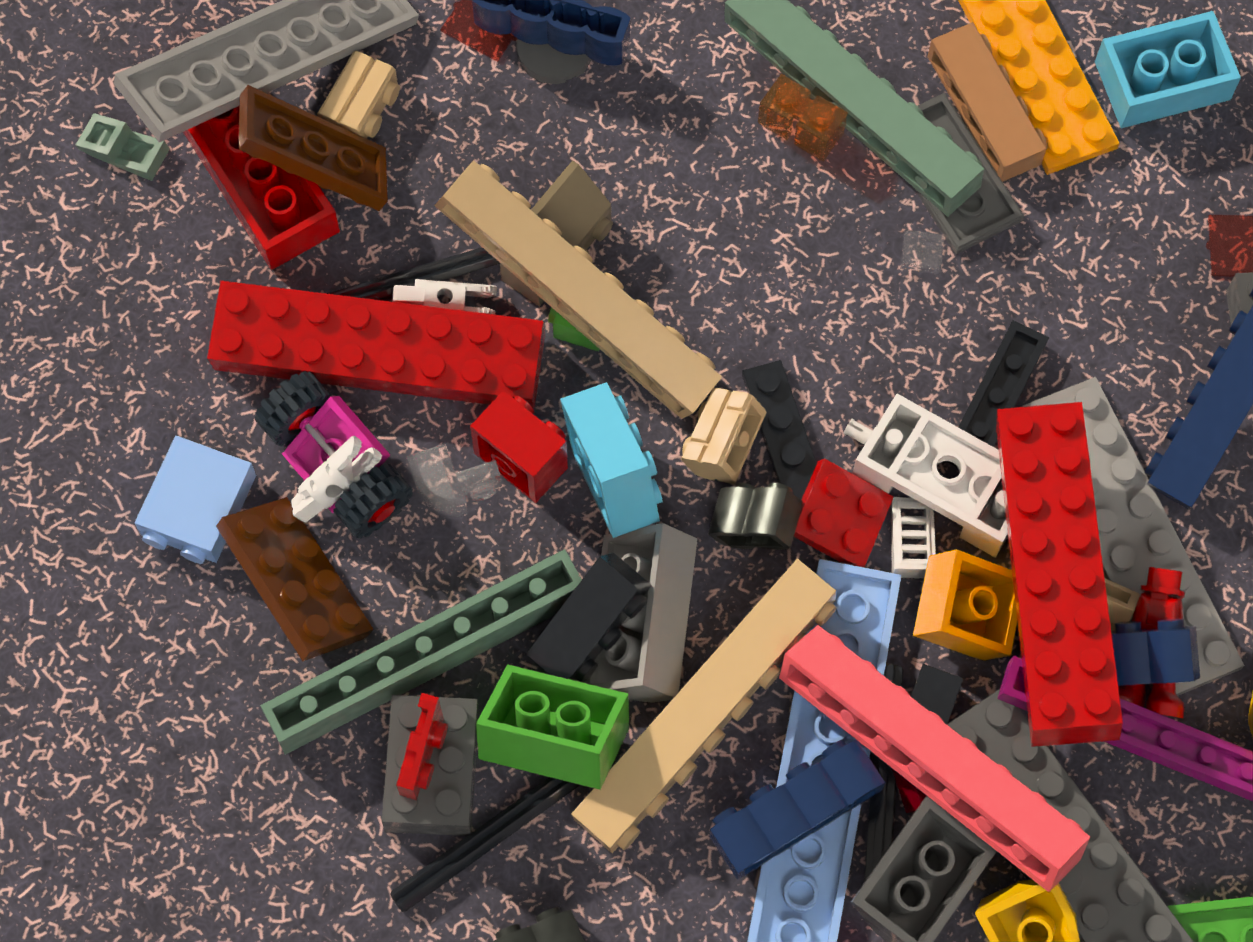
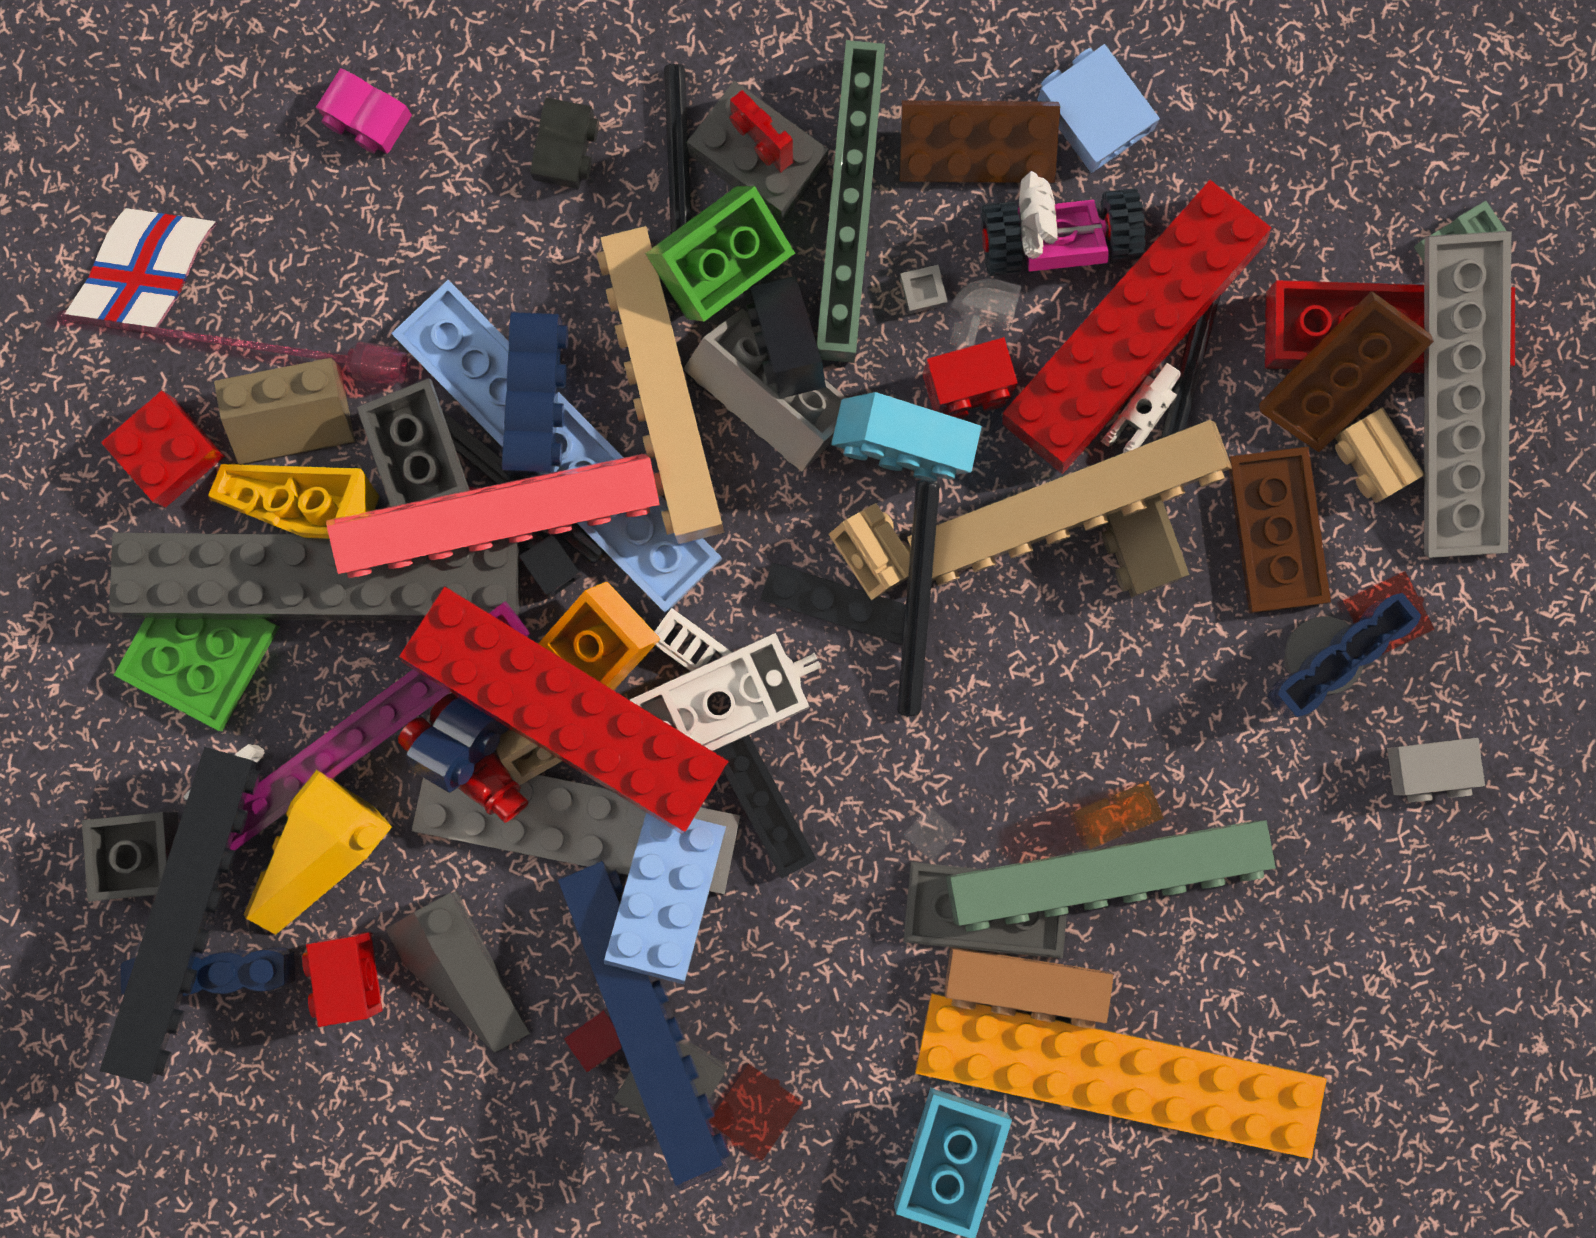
camera: 125 degrees right, 15 degrees up
(460, 545) = (923, 289): none -> light grey plate
(484, 126) = (1279, 530): none -> reddish brown plate
(738, 370) = (918, 597): none -> black axle
(755, 516) = (786, 527): pearl dark grey brick -> none
(841, 514) = (746, 599): red plate -> none
(1148, 401) = (665, 899): none -> light blue plate

